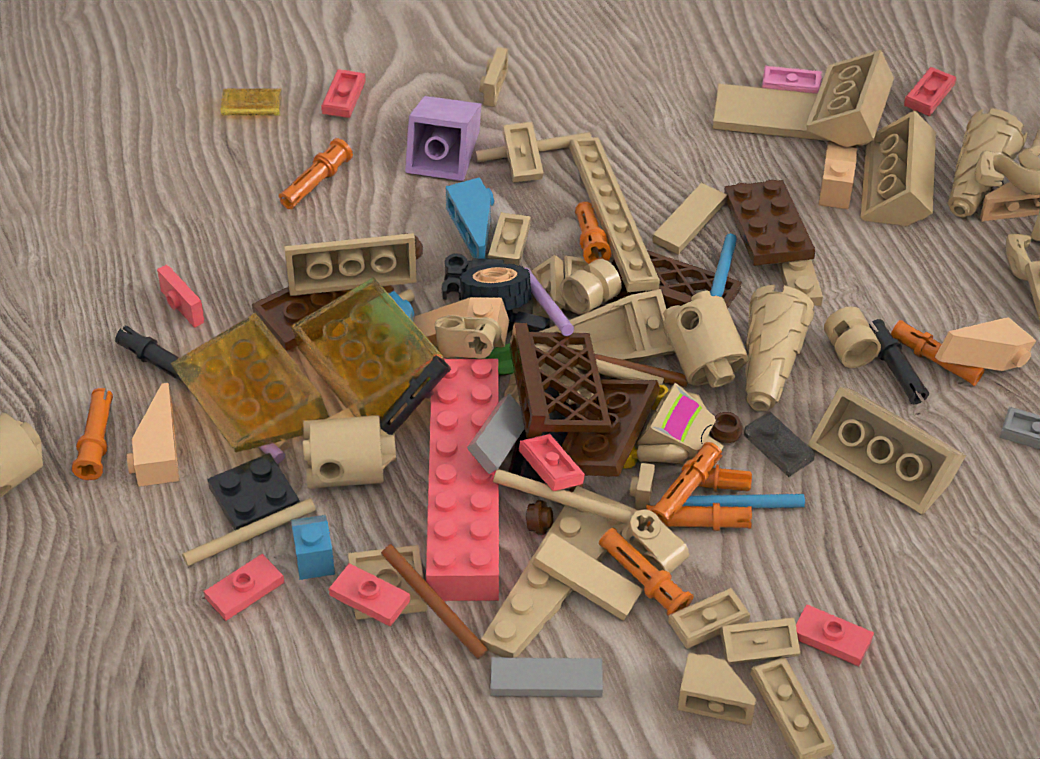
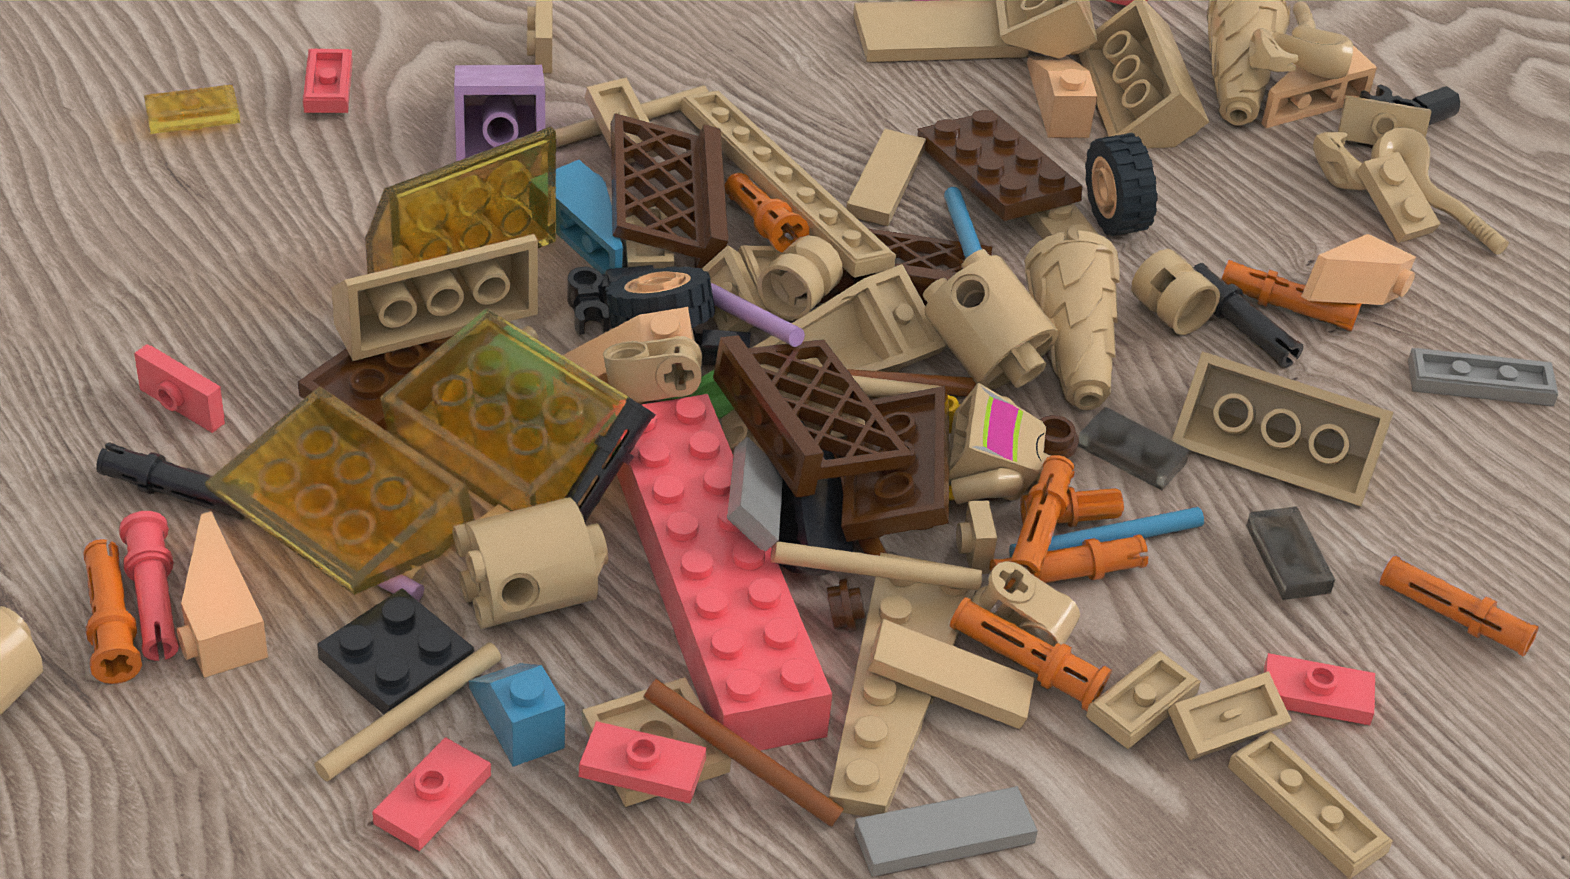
camera: 20 degrees left, 5 degrees down
(126, 410) = (148, 566): none -> coral pin
(323, 166) = (334, 180): orange pin -> none
(391, 204) = (468, 204): none -> clear yellow slope
(551, 462) = (847, 520): coral plate -> none
(557, 208) = (702, 192): none -> reddish brown fence
(715, 690) = (1198, 797): tan slope -> none
(842, 252) = (1121, 184): none -> black wheel
(853, 538) = (1290, 553): none -> clear smoke plate
(966, 607) = (1478, 615): none -> orange pin

